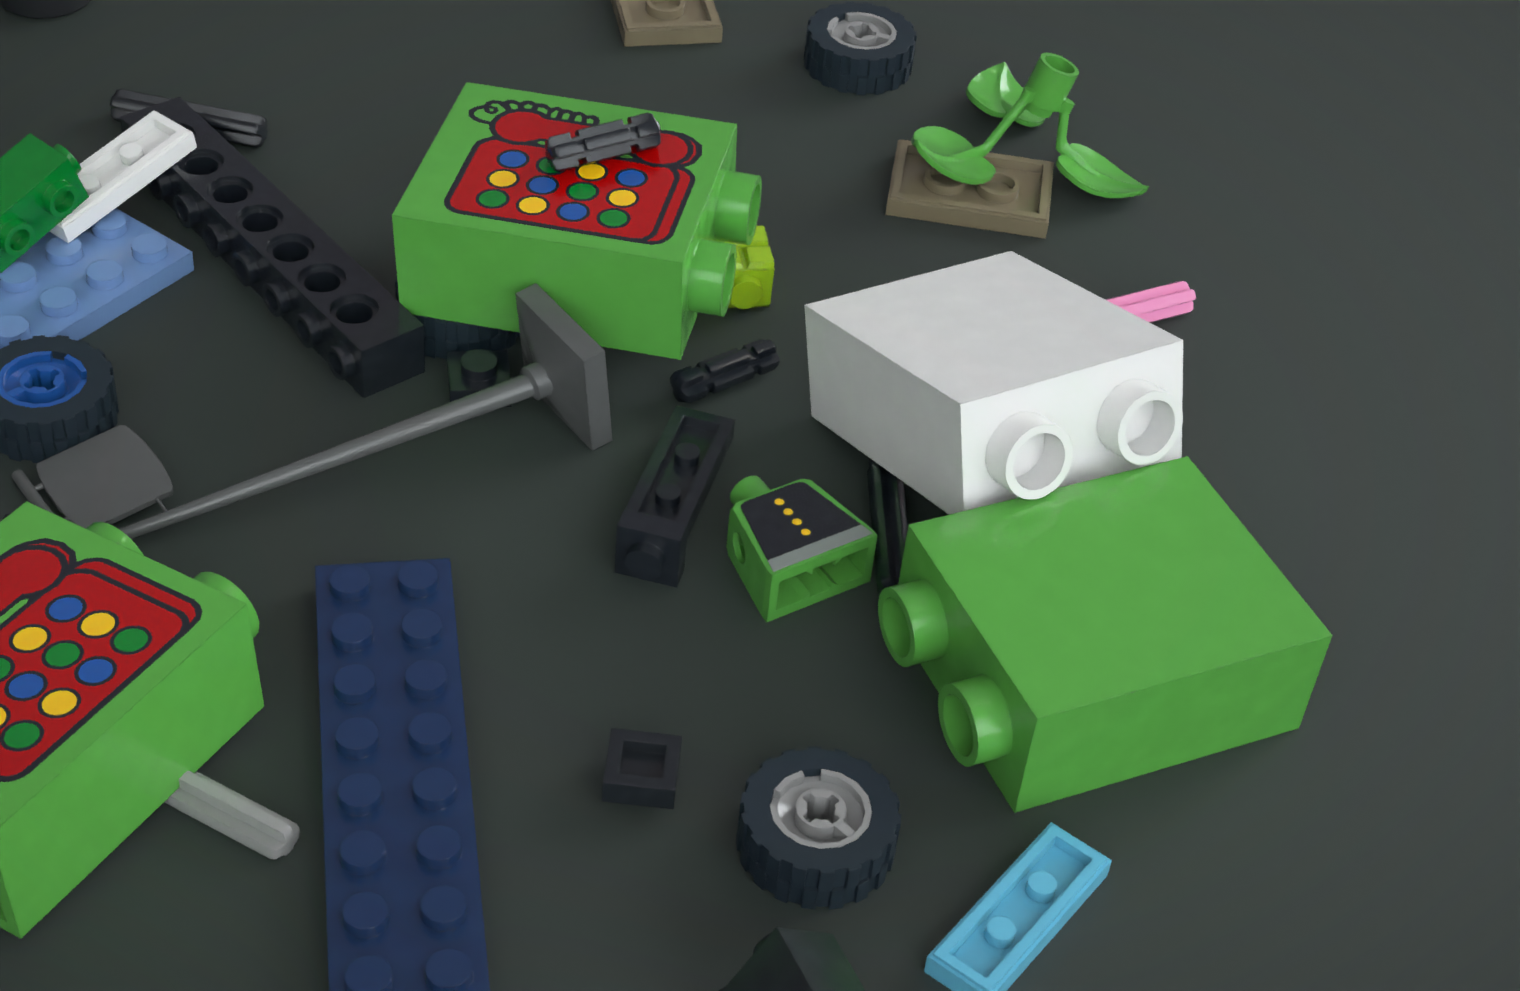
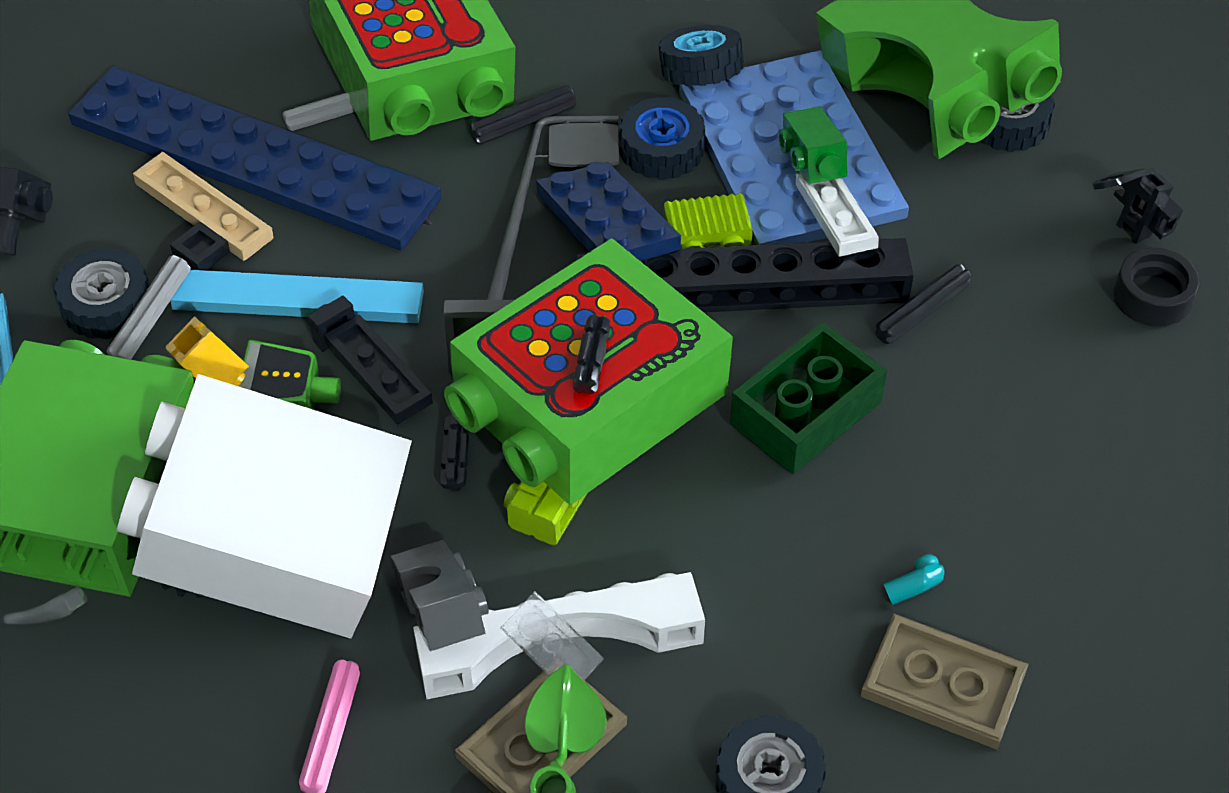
camera: 130 degrees right, 10 degrees up
(202, 294) = (710, 221): none -> lime brick
(257, 368) = (602, 206): none -> dark blue plate
(391, 117) = (807, 397): none -> dark green brick
(558, 824) = (203, 203): none -> tan plate
(572, 25) = (926, 576): none -> teal arm
(632, 635) = (297, 295): none -> medium azure tile
(760, 739) = (149, 308): none -> light grey axle
(844, 584) = (205, 354): none -> yellow brick
(900, 170) = (550, 638): none -> clear plate
(911, 234) = (651, 613): none -> white arch
(953, 206) = (440, 594): none -> dark grey arch

